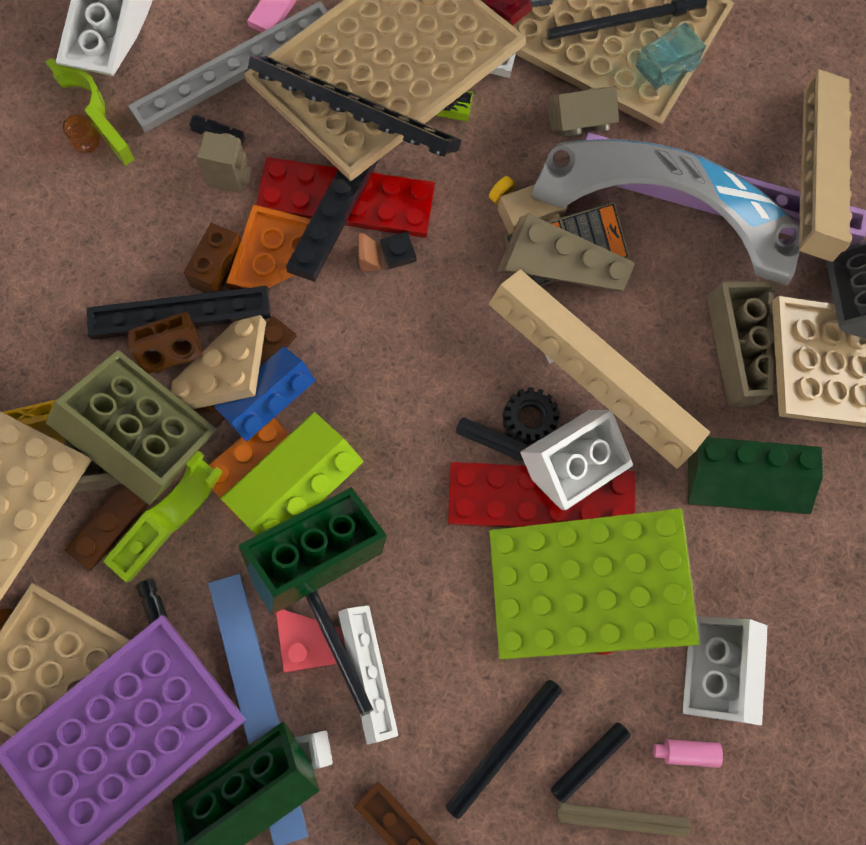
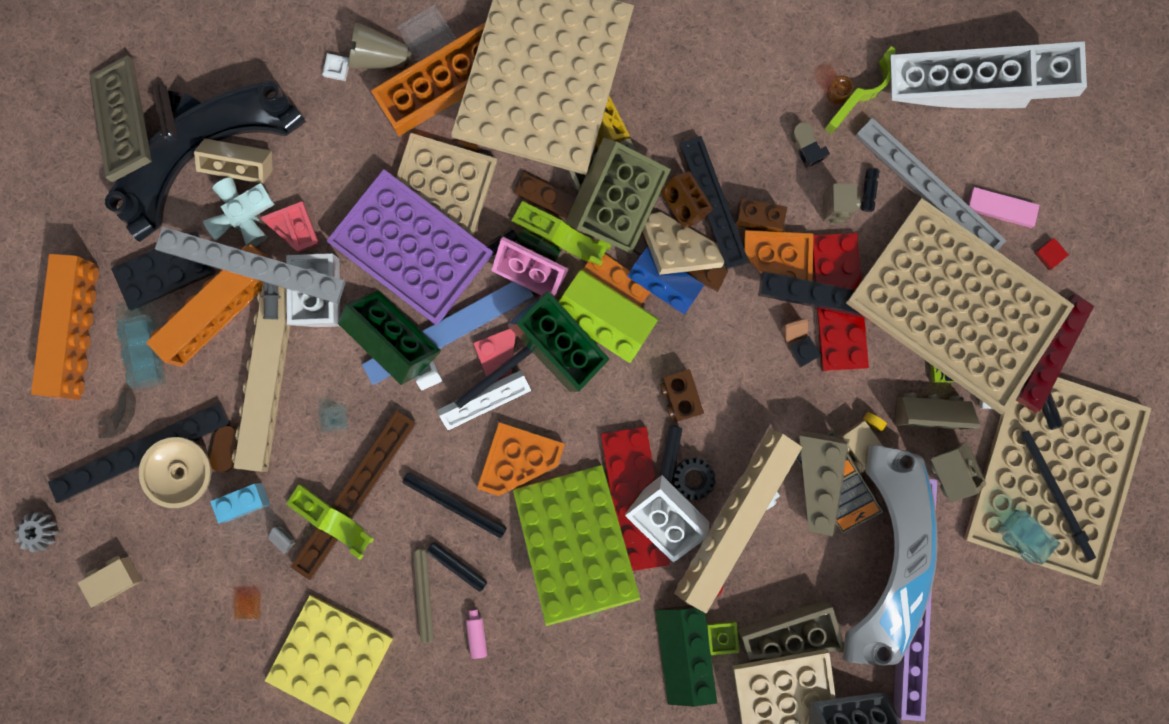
camera: 80 degrees right, 10 degrees up
(139, 186) = (807, 146): none -> leg
(171, 551) = (538, 245): none -> dark green axle
(197, 569) = (528, 268): none -> bright pink slope
(362, 108) = (908, 290): black plate -> none
(420, 398) = (688, 394): none -> reddish brown brick
(459, 644) = (517, 458): none -> orange plate
(506, 120) = (935, 412): none -> dark tan slope
(726, 670) = (538, 653): white slope -> none
(736, 423) = (723, 637): none -> lime piece
(825, 167) = (957, 678): tan brick -> none

